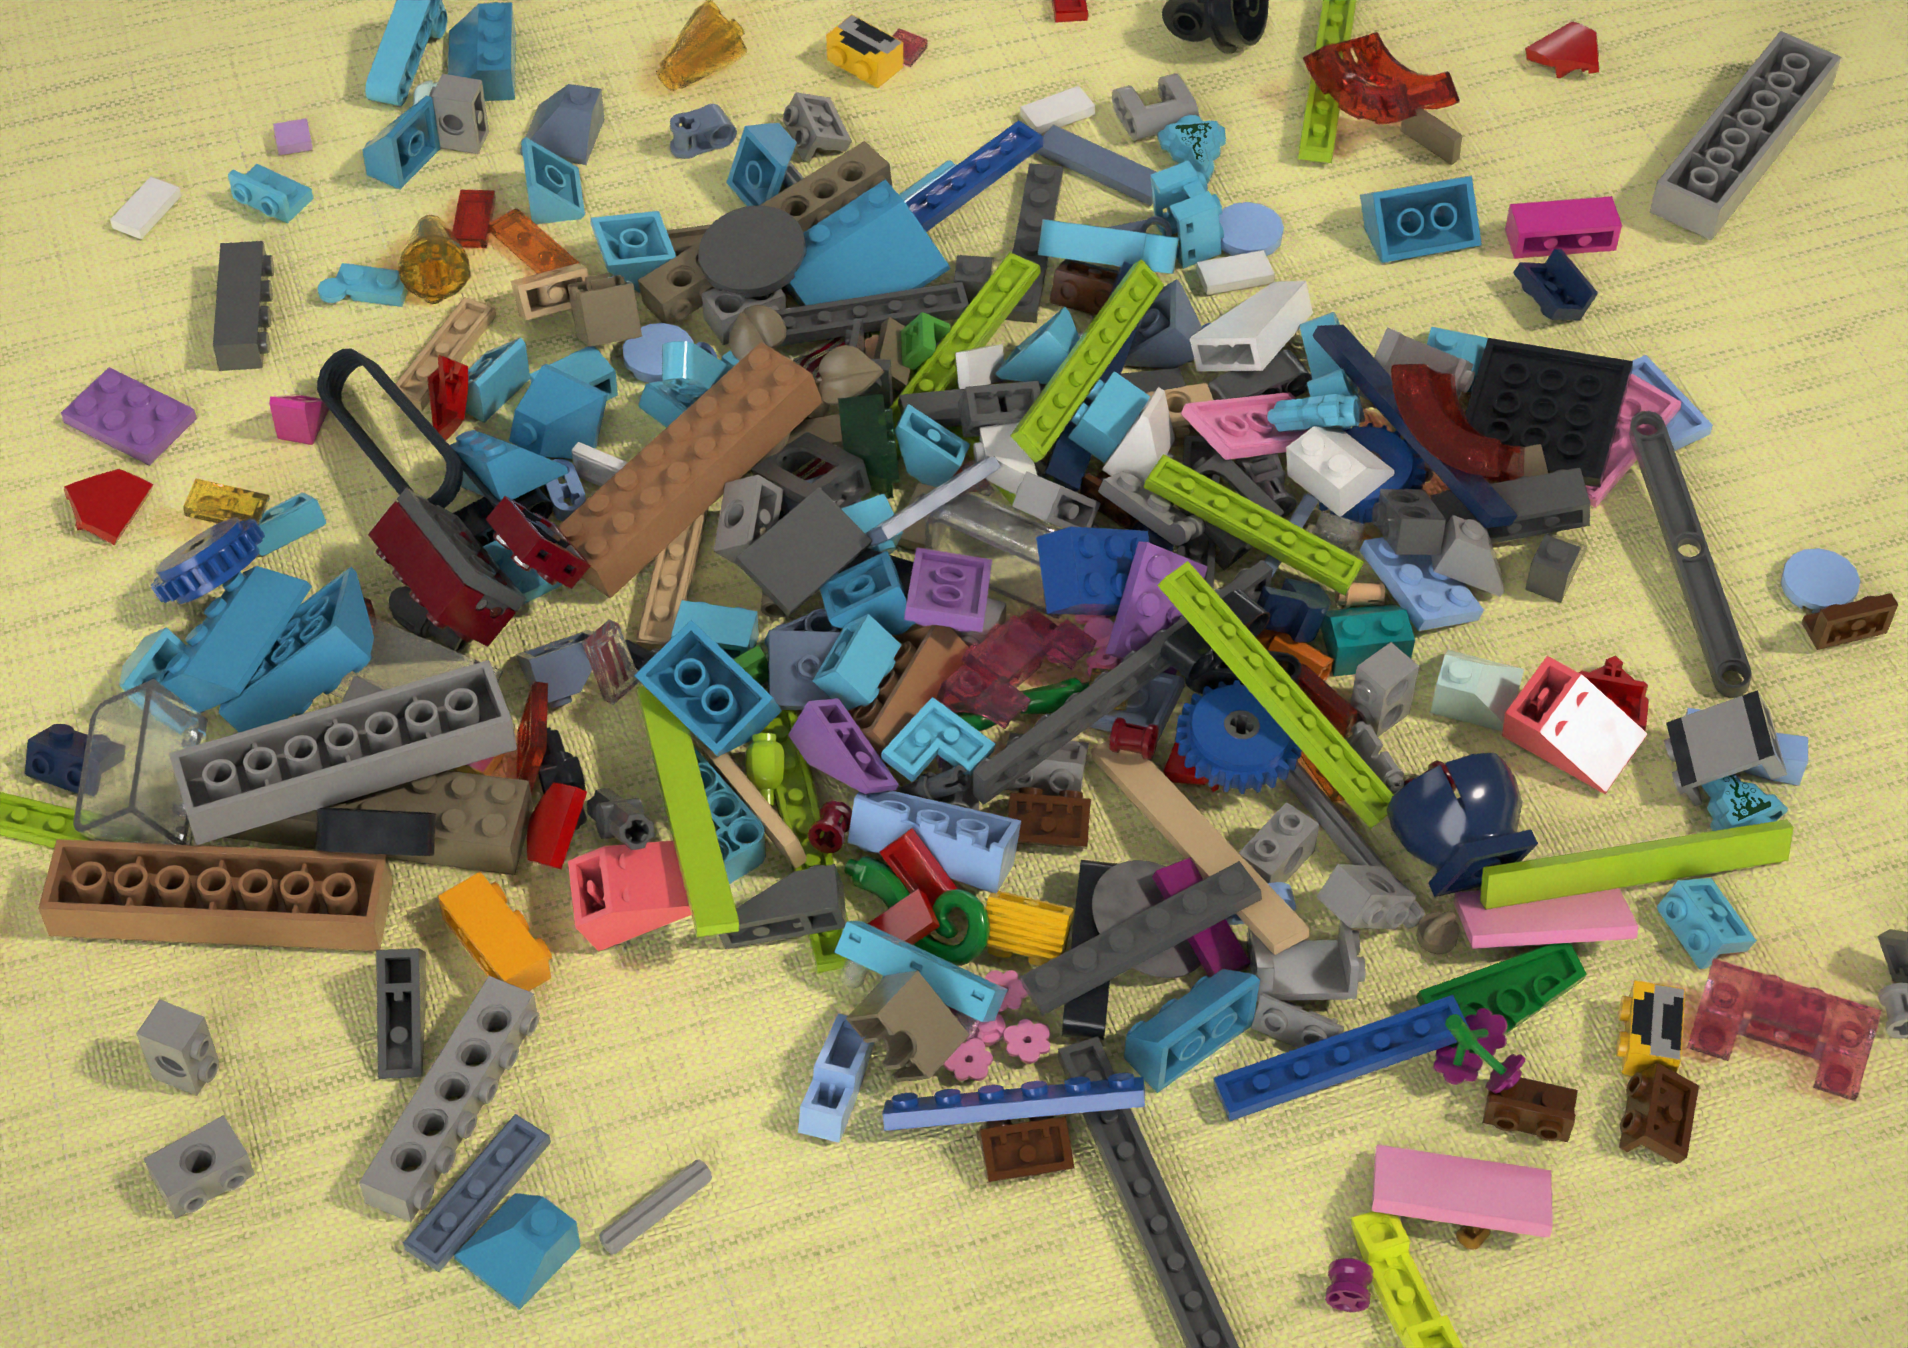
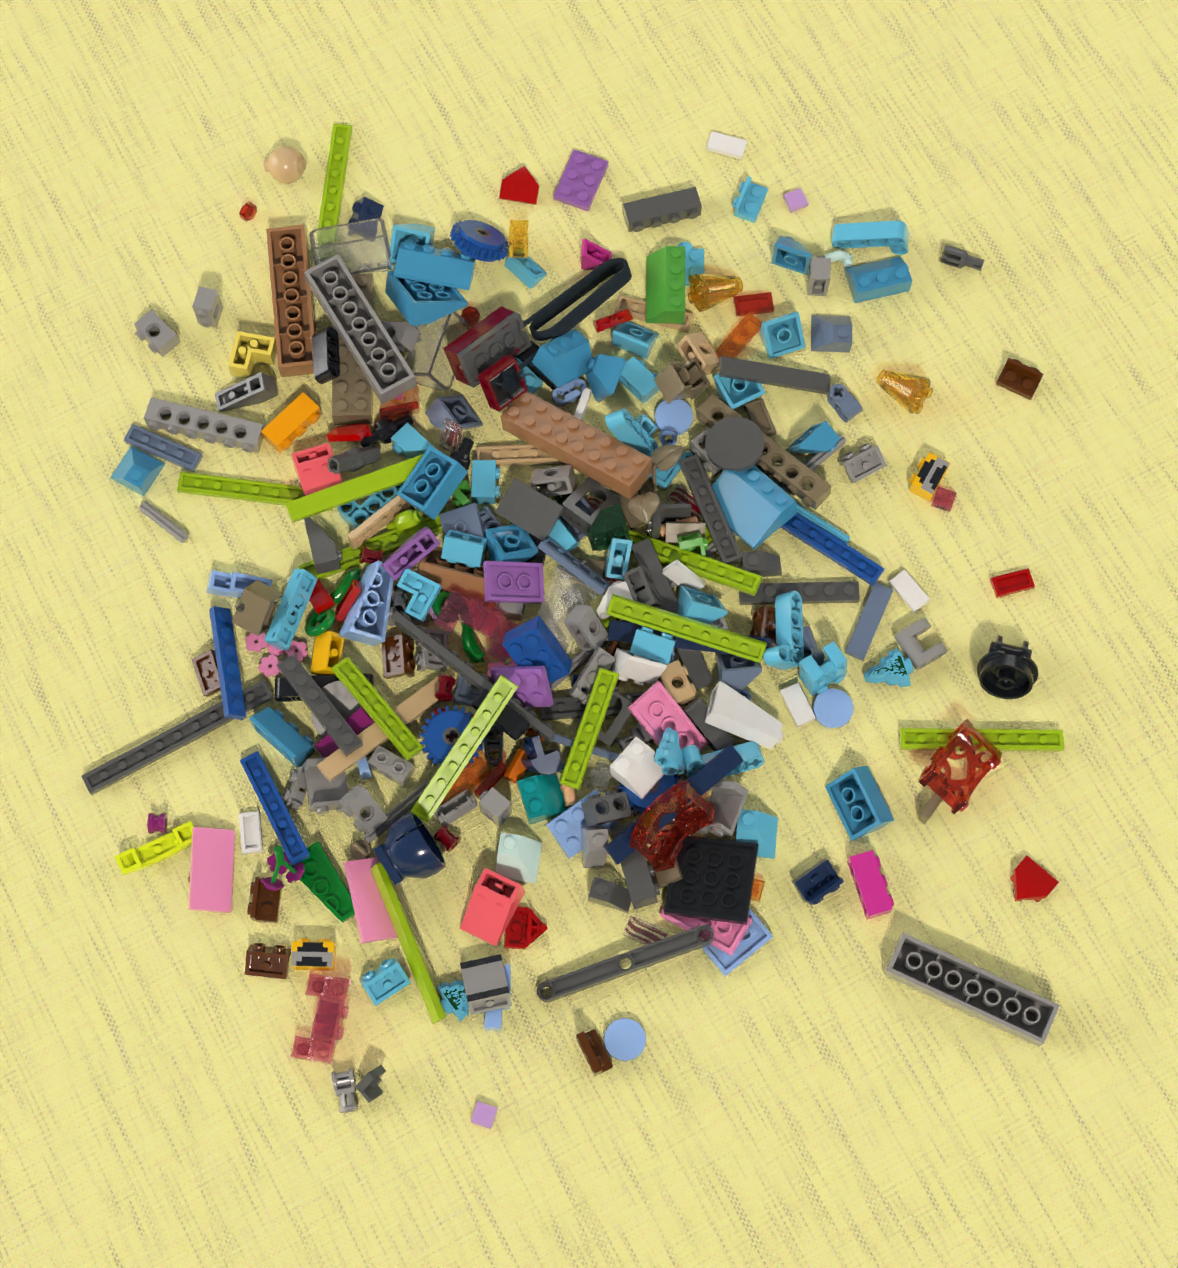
camera: 80 degrees right, 20 degrees up
(309, 986) = (250, 349): none -> light yellow brick
(401, 314) = (666, 285): none -> bright green slope
(601, 737) = (409, 442): none -> medium azure slope
(619, 1048) = (238, 489): none -> lime tile
(629, 195) = (774, 375): none -> dark grey tile
(1161, 844) = (377, 708): none -> lime tile
(1382, 1120) = (250, 833): none -> white tile
(1625, 528) = (643, 931): none -> clear tile

